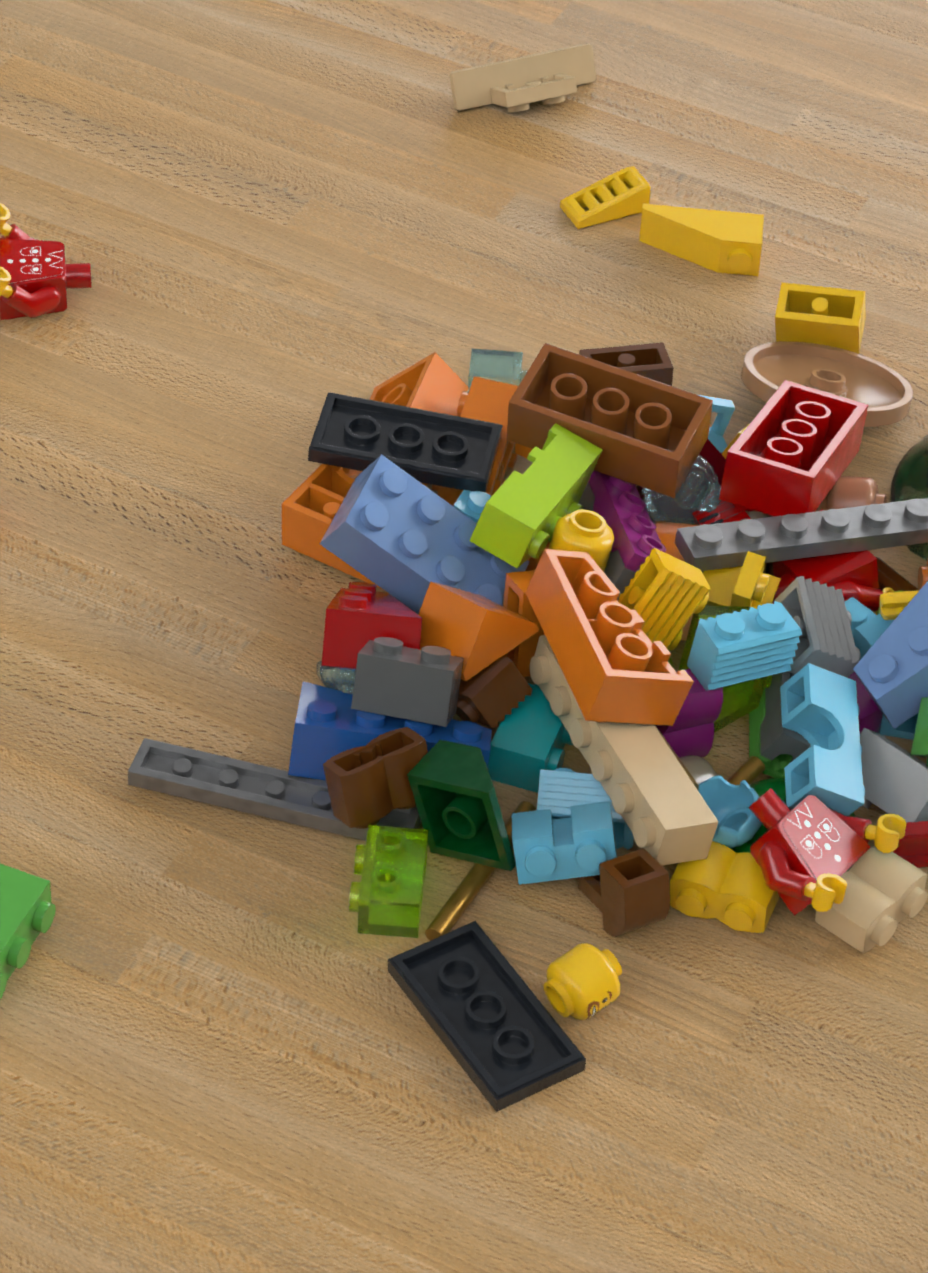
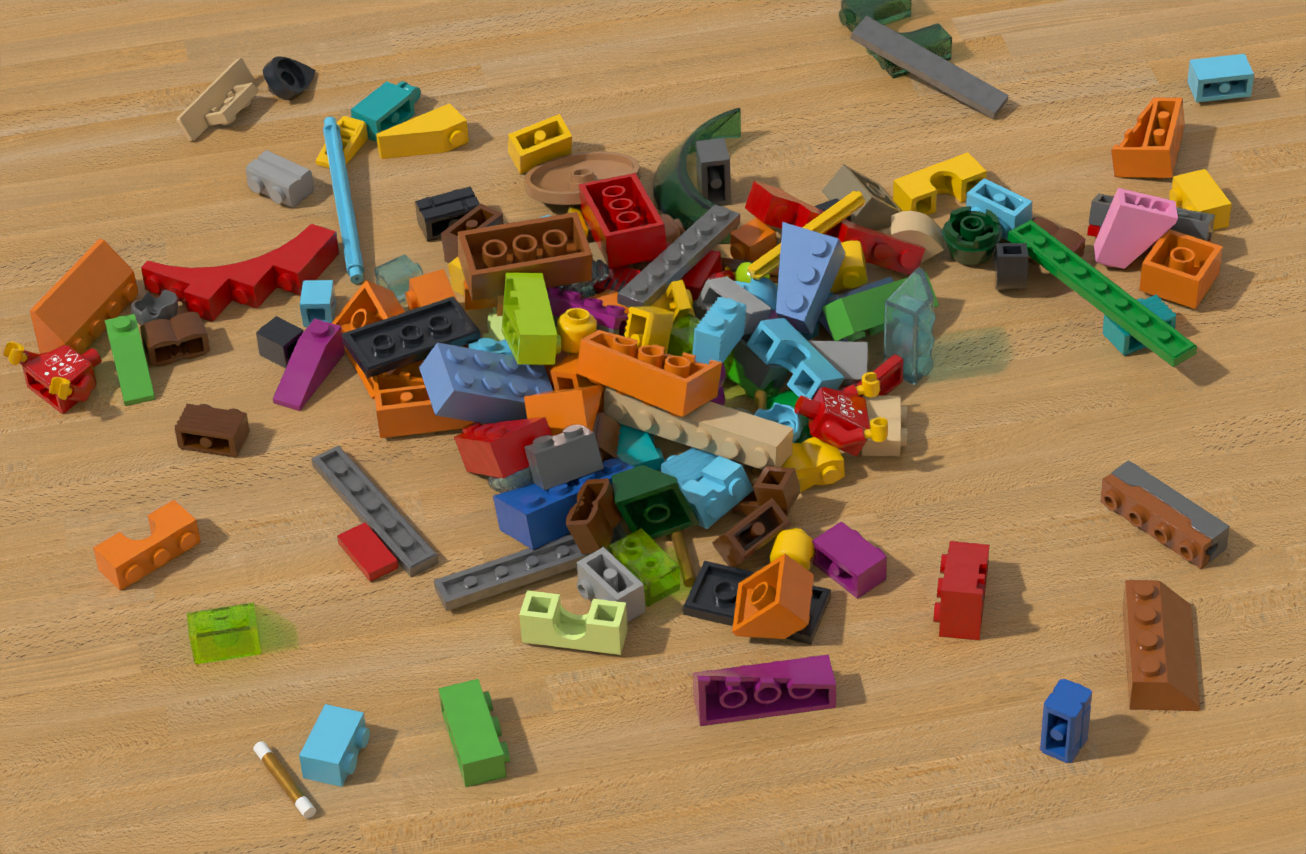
camera: 35 degrees left, 0 degrees up
(114, 424) = (212, 430): none -> reddish brown brick
(120, 298) = (129, 359): none -> bright green slope
(123, 662) = (367, 551): none -> red tile
(134, 208) = (83, 299): none -> orange slope
(183, 623) = (375, 509): none -> flat silver tile
(188, 304) = (174, 338): none -> reddish brown brick
(202, 263) = (154, 308): none -> dark grey hair
(254, 914) = (549, 624): none -> yellowish green arch
(287, 416) = (310, 363): none -> magenta slope
(292, 373) = (278, 340): none -> black brick
(319, 878) = (607, 579): none -> light grey brick
(339, 290) = (250, 281): none -> red arch
(360, 1123) = (764, 690): none -> magenta wedge
(378, 353) = (317, 301): none -> medium azure brick
(487, 1024) = (774, 600): none -> orange slope
(491, 198) = (279, 179): none -> light grey brick
(532, 259) = (343, 201): none -> medium azure piece
(553, 922) = (751, 533): none -> reddish brown brick
(625, 326) = (443, 210): none -> black brick
(626, 96) = (287, 77): none -> black piece
(647, 1037) = (850, 559): none -> magenta brick
(698, 182) = (386, 107): none -> teal brick
(741, 1170) = (962, 590): none -> red wedge

